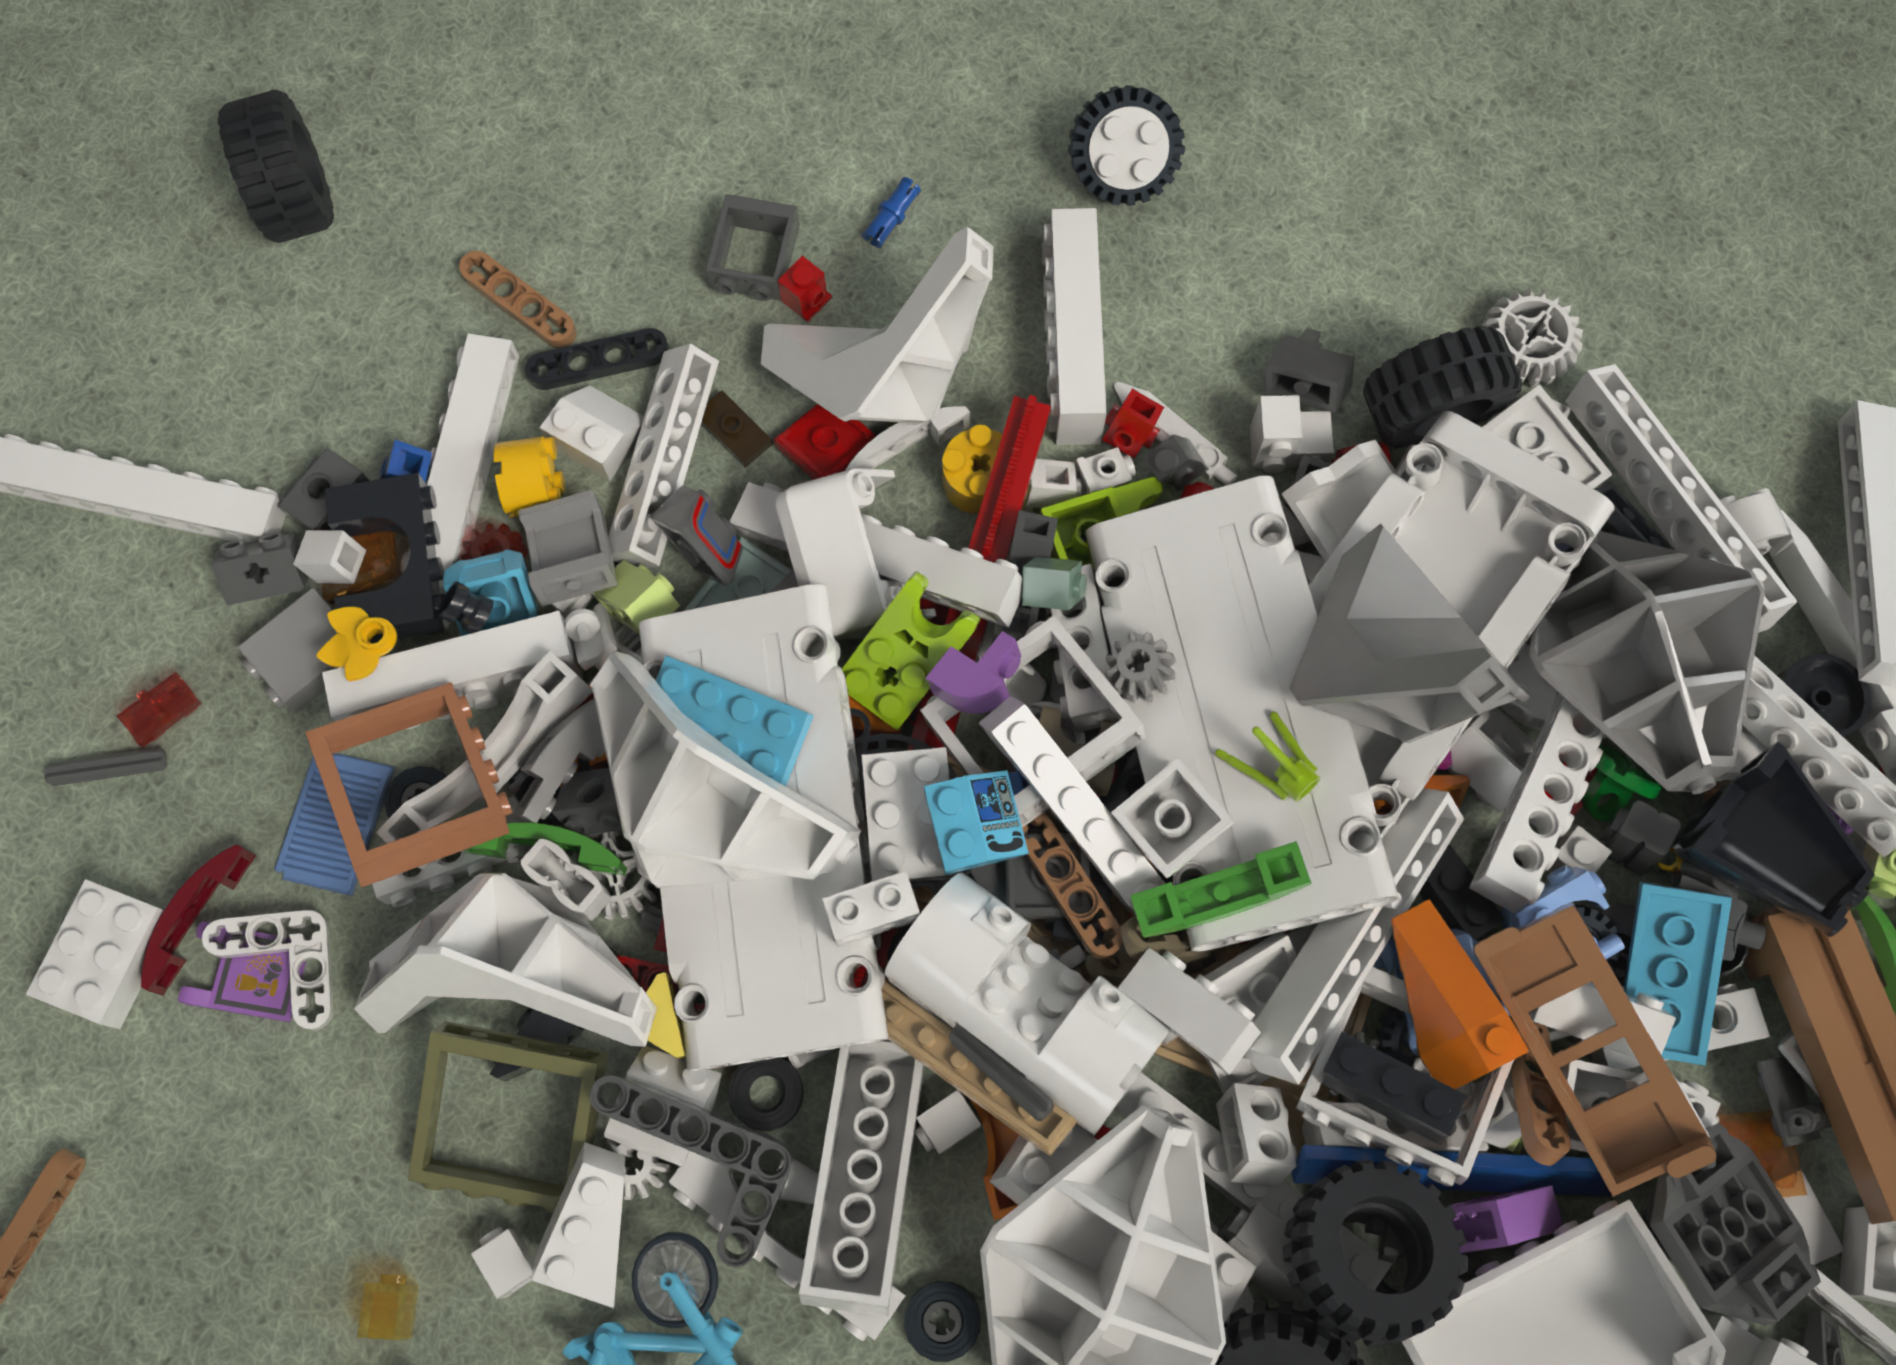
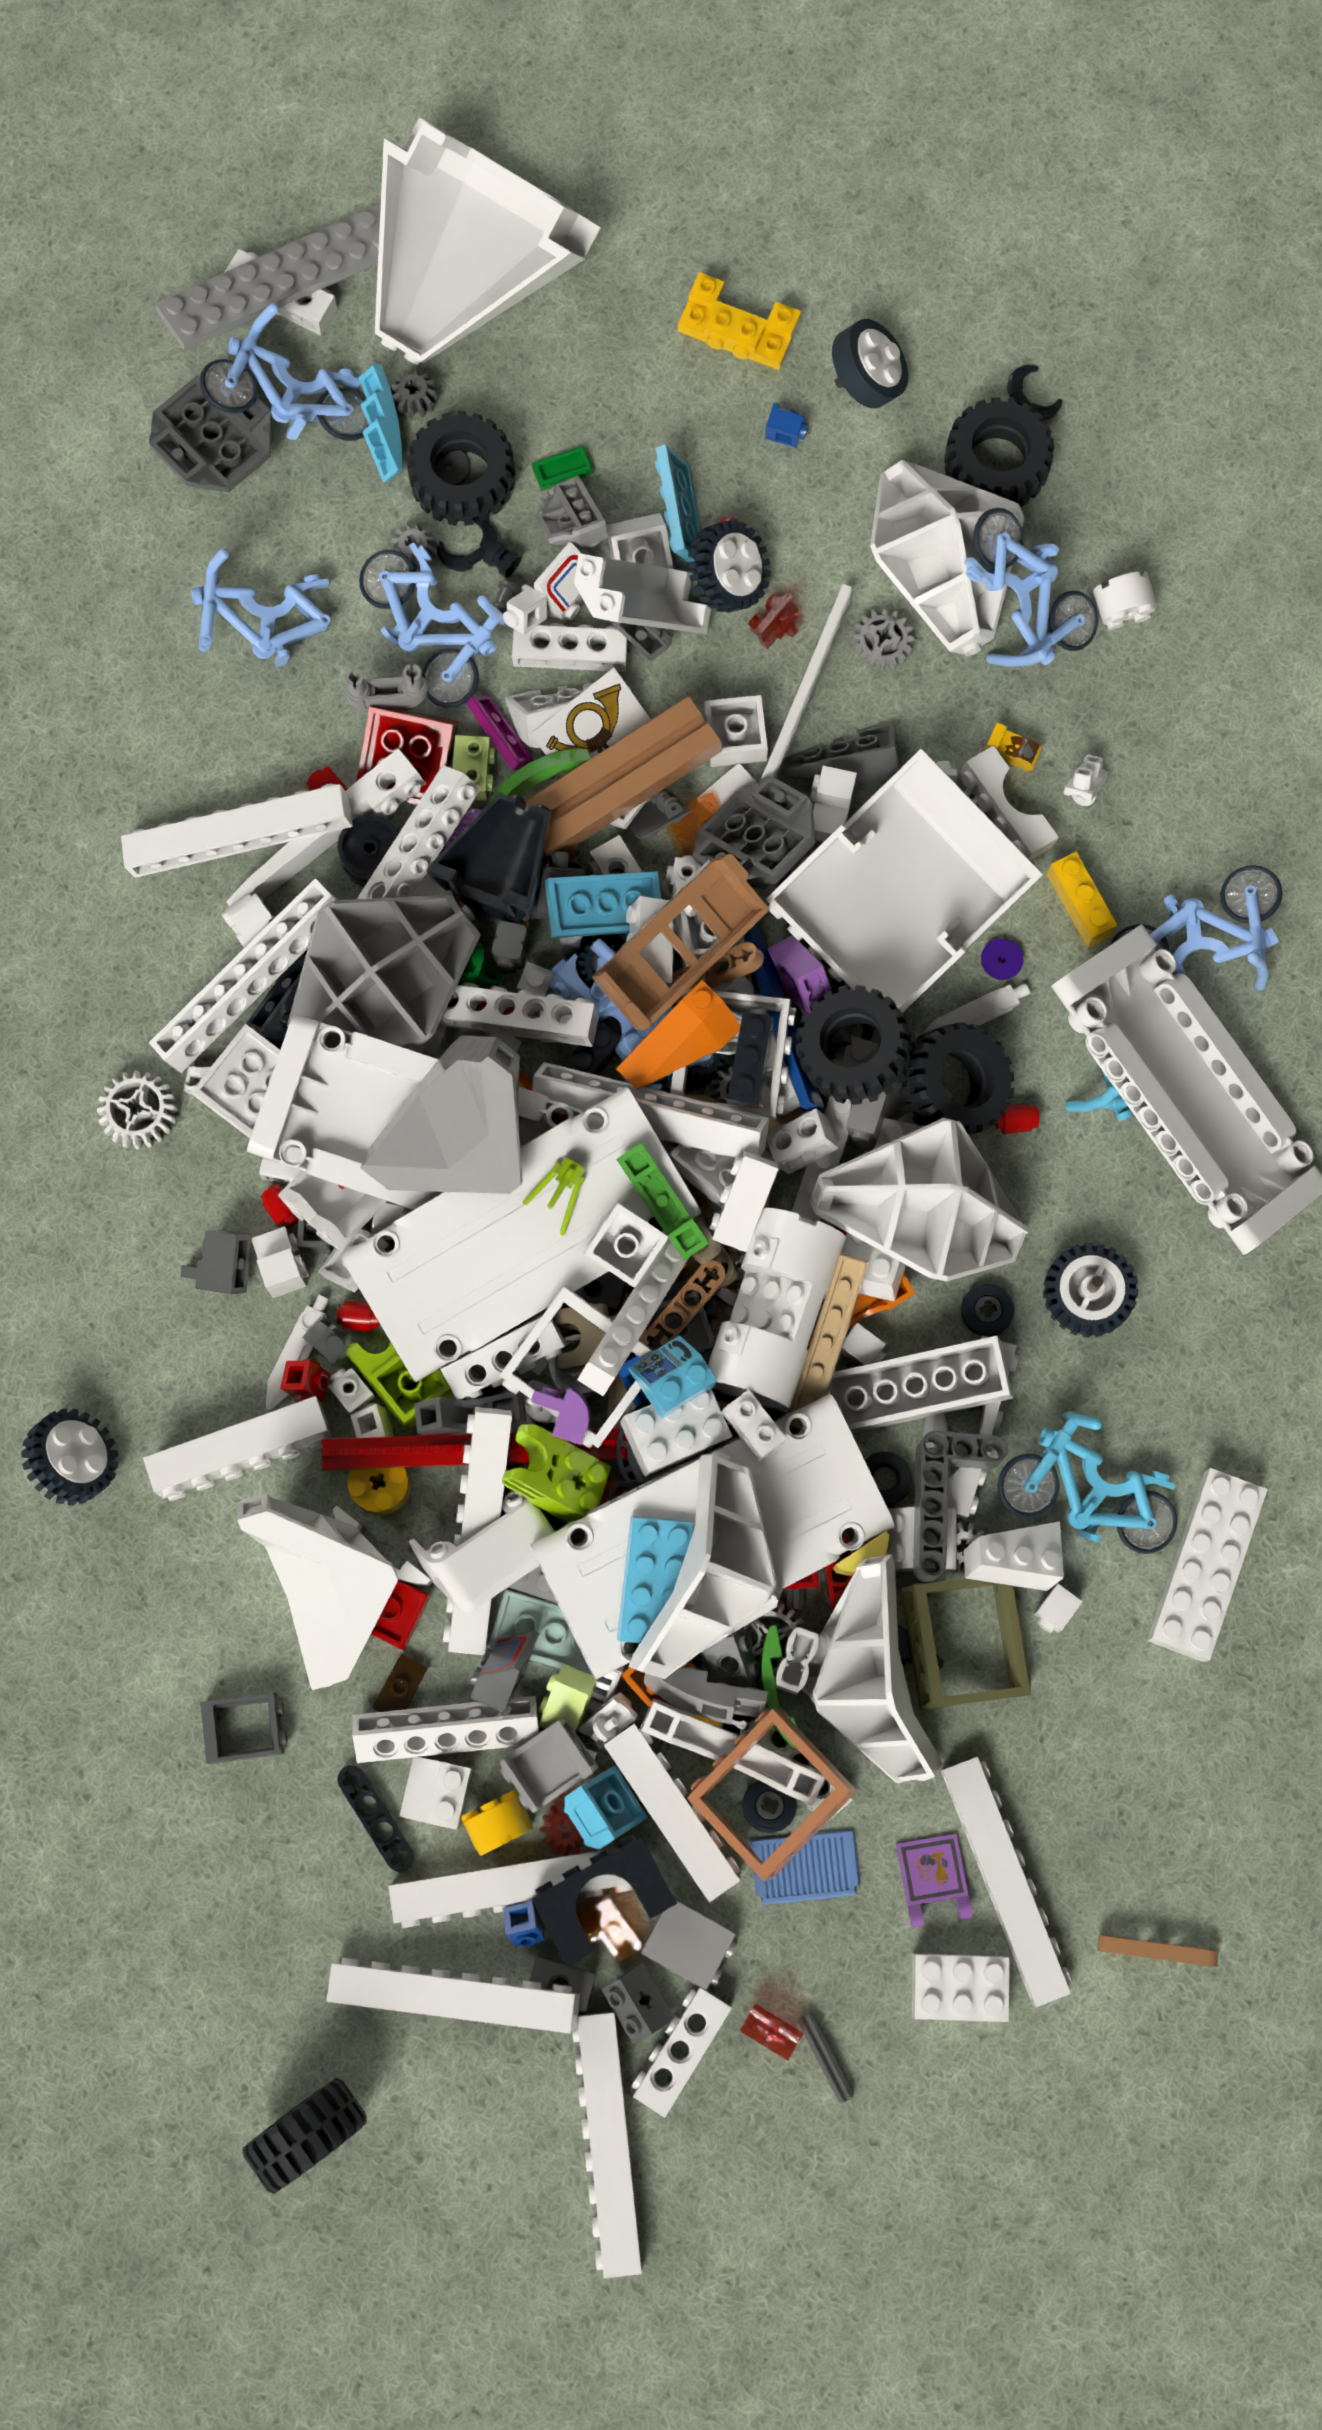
camera: 110 degrees left, 5 degrees up
(151, 563) = (663, 2097): none -> white brick
(160, 961) = (947, 1942): dark red slope -> none
(199, 1060) = (1006, 1882): none -> white brick
(298, 949) = (905, 1845): white beam -> none
(329, 556) = (613, 1950): white brick -> none
(353, 644) = (682, 1888): yellow plate -> none
(354, 373) = (454, 1997): none -> white brick
(388, 1308) = (1114, 1675): clear yellow brick -> none
(465, 607) = (625, 1813): black wheel -> none
(518, 299) = (339, 1902): medium nougat beam -> none
(804, 289) = (267, 1672): red brick -> none
(891, 212) = (174, 1630): blue pin -> none
(1002, 1074) = (828, 1307): dark grey axle -> none
(1053, 583) = (469, 1387): sand green brick -> none
(1156, 667) = (520, 1294): light grey gear -> none
(1454, 372) = (216, 1159): black tyre -> none

